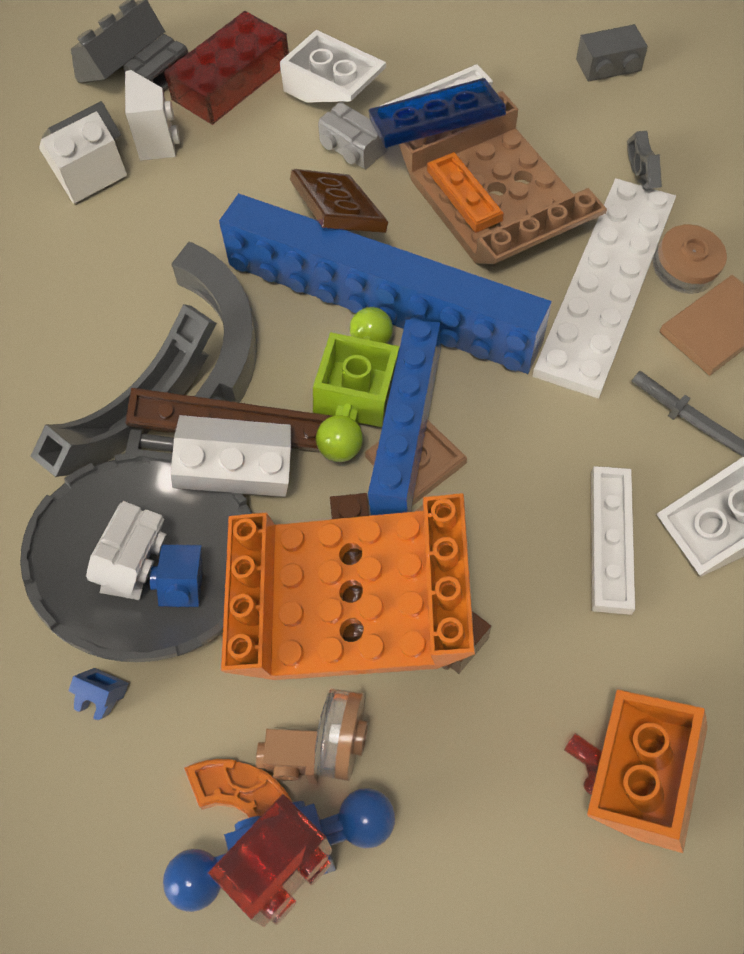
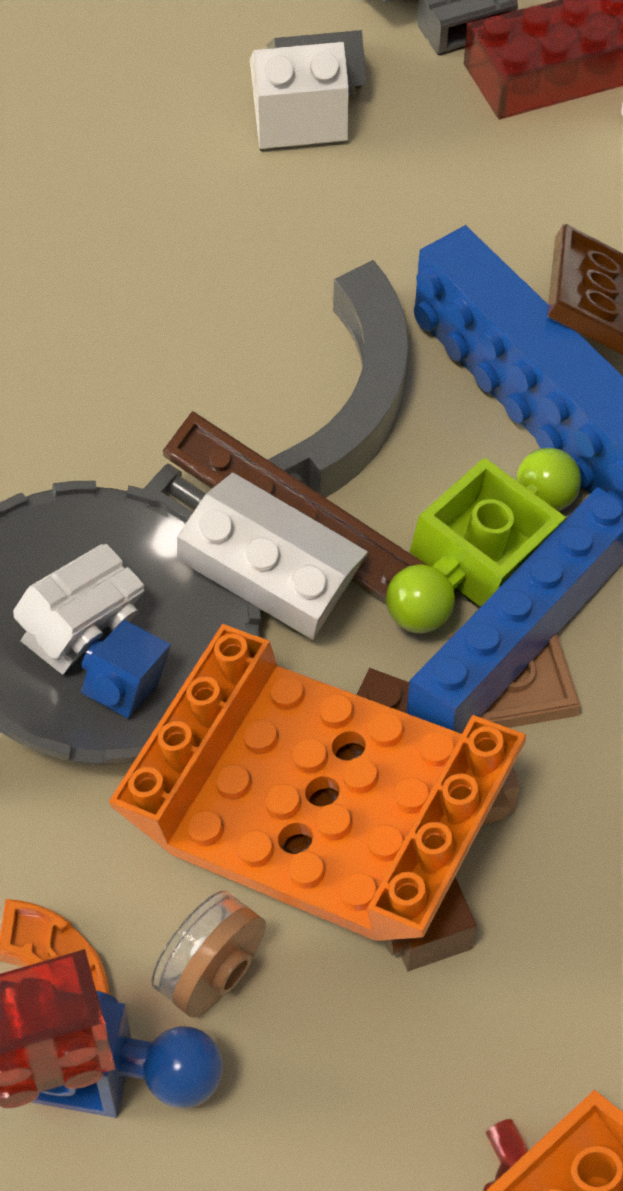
camera: 25 degrees right, 5 degrees down
(104, 433) = (132, 452): dark grey arch -> none
(149, 118) = (413, 78): white slope -> none
(288, 754) = (131, 946): medium nougat brick -> none

